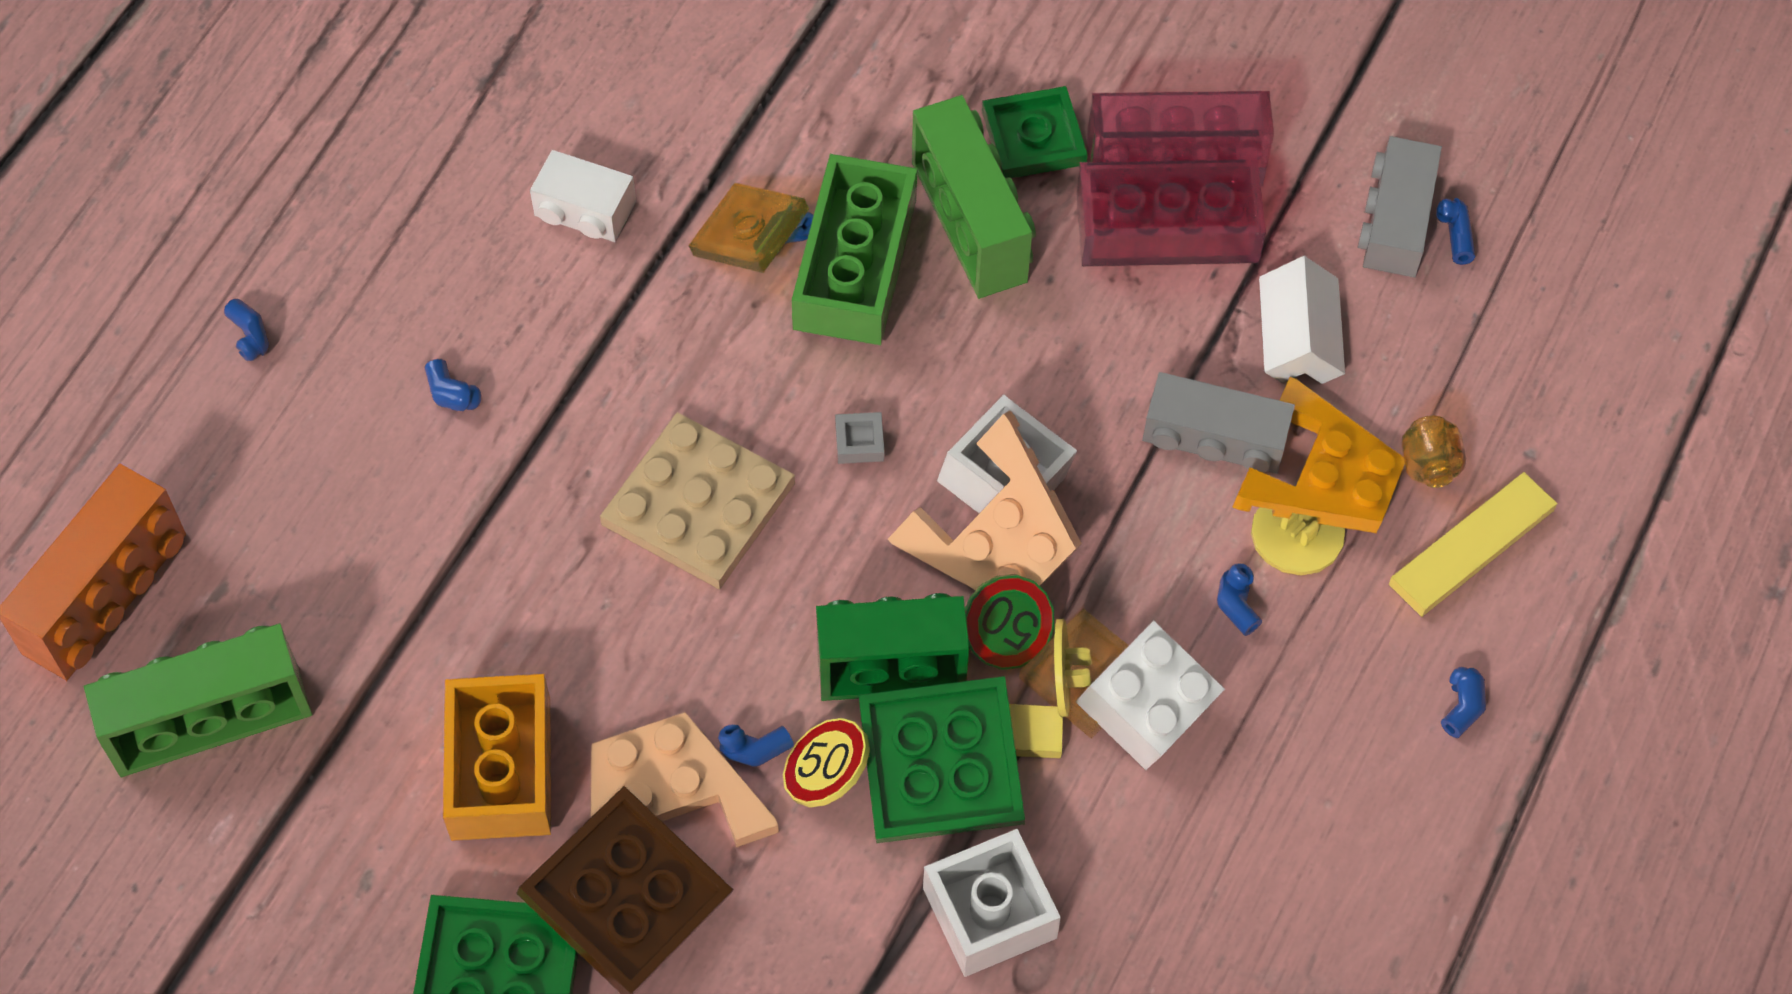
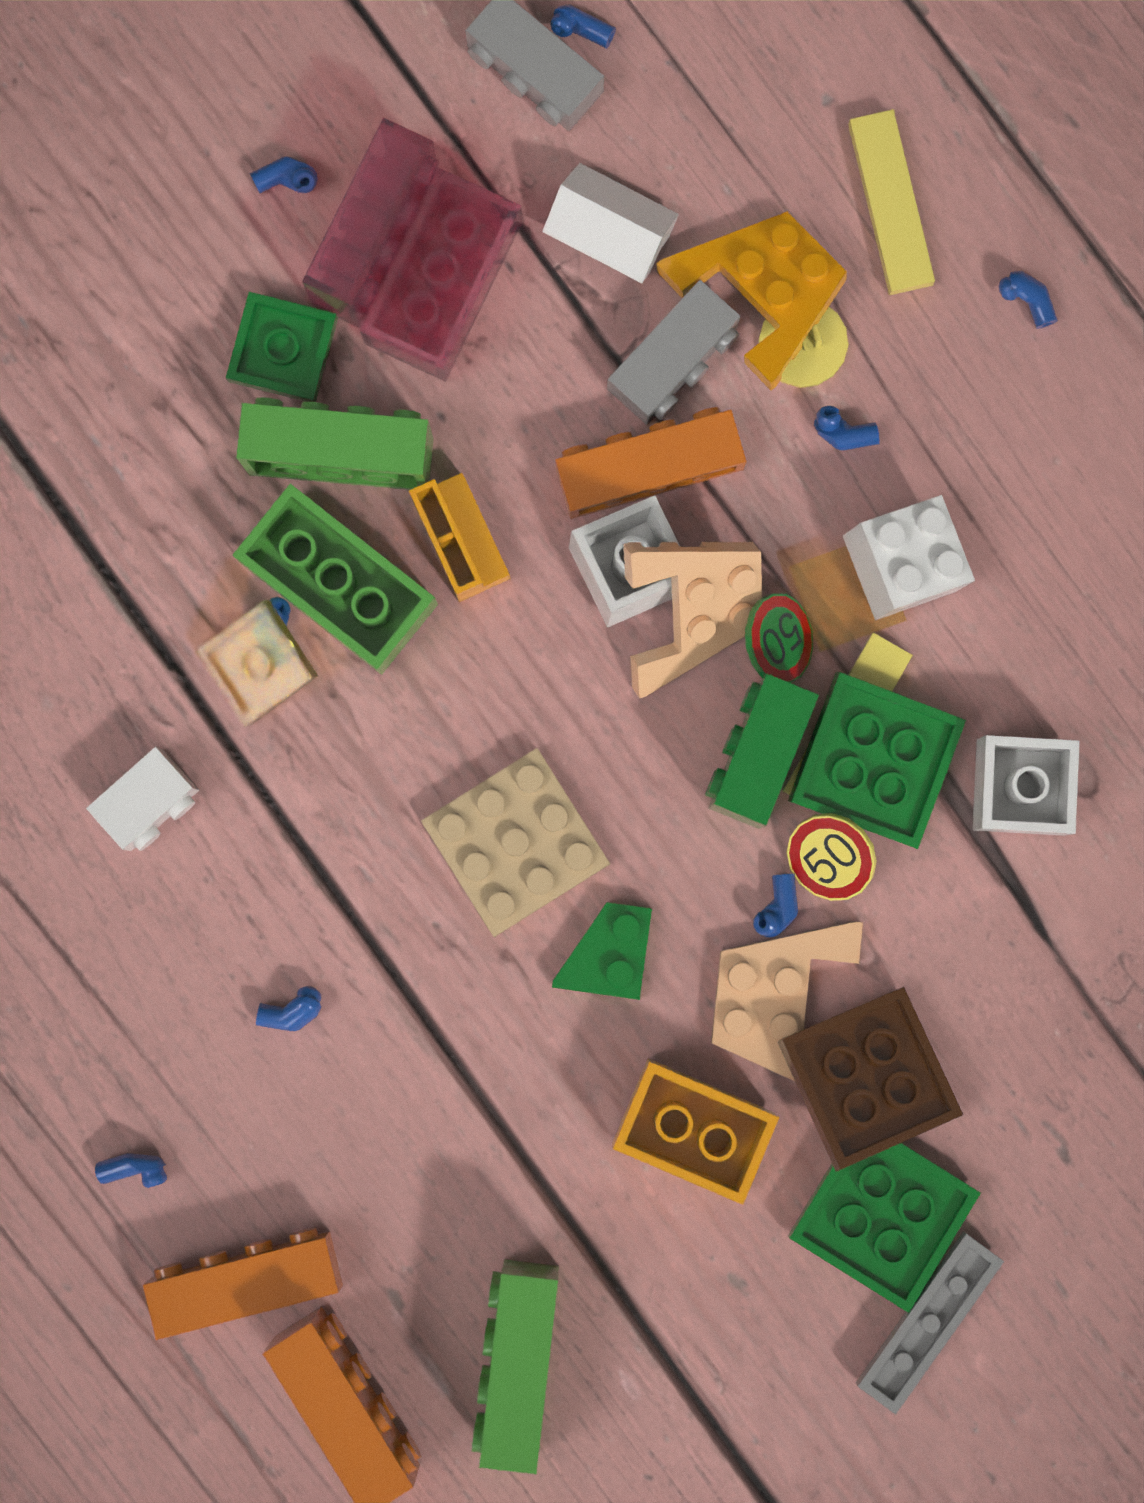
camera: 60 degrees left, 25 degrees up
(180, 454) = (242, 1284): none -> orange brick
(634, 622) = (609, 954): none -> green wing
(859, 437) = (528, 672): light grey plate -> none
(948, 328) = (459, 536): none -> light orange piece
(1064, 675) = (871, 625): light yellow piece -> none
(1110, 449) = (650, 463): none -> orange brick
(1184, 73) = (286, 172): none -> blue arm
(1433, 451) = (797, 185): clear yellow head -> none

